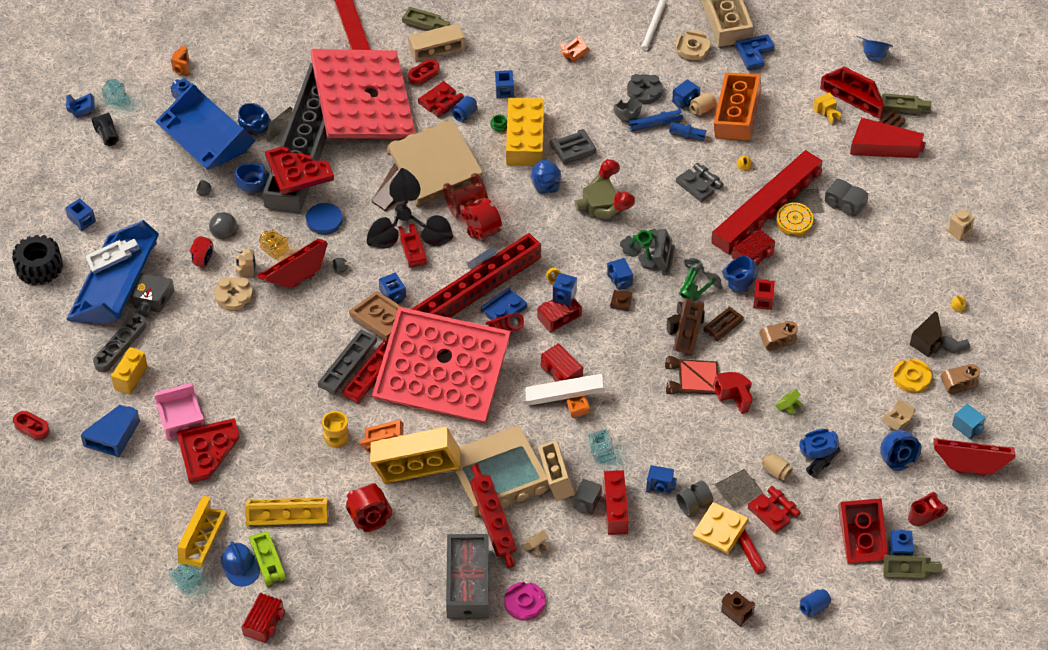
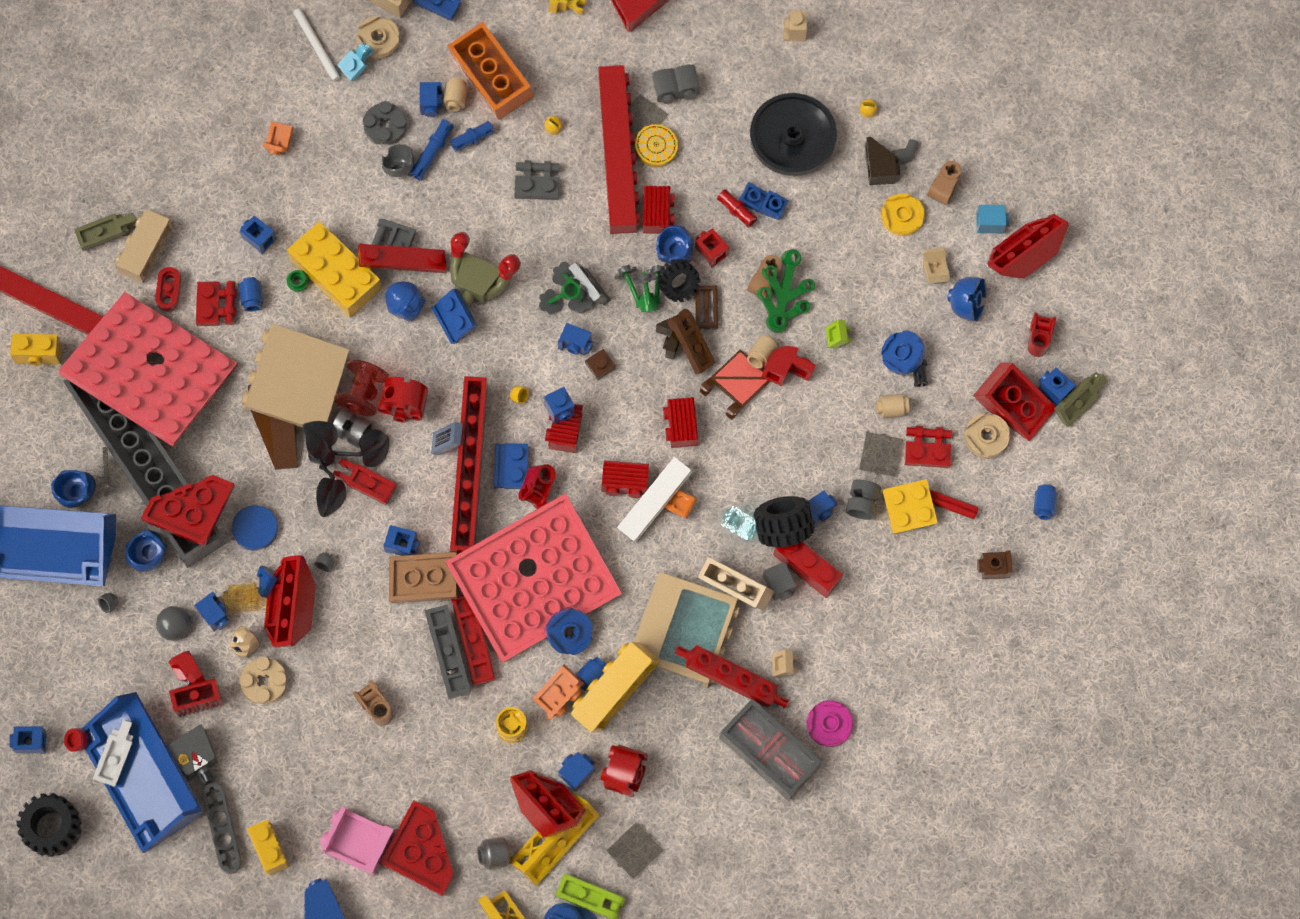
camera: 50 degrees left, 20 degrees up
(103, 235) = (76, 740): none -> red tile
(186, 266) = (196, 697): none -> red brick
(243, 485) = (495, 853): none -> flat silver head
(249, 235) = (213, 612): none -> blue brick
(276, 355) = (372, 700): none -> medium nougat piece
(300, 243) = (266, 581): none -> blue tile
(303, 484) = (546, 803): none -> red wedge
(316, 38) = (36, 349): none -> yellow brick
(324, 560) = (634, 850): none -> clear smoke piece
(341, 485) = (576, 770): none -> blue brick
(421, 403) = (567, 618): none -> blue plate
(436, 205) = (358, 428): none -> flat silver wheel
(564, 206) = (454, 316): none -> blue plate
(568, 153) = (402, 258): none -> red plate
(626, 460) = (784, 521): none -> black tyre
(632, 366) = (682, 422): none -> red brick
(663, 46) = (354, 62): none -> medium azure plate
(720, 302) = (686, 288): none -> black tyre
(727, 366) = (761, 351): none -> tan brick
(778, 351) = (783, 293): none -> green plant
(805, 288) = (737, 208): none -> red pin
(818, 544) = (988, 423): none -> tan plate
(827, 298) = (763, 202): none -> blue slope
(888, 275) = (796, 117): none -> black dish

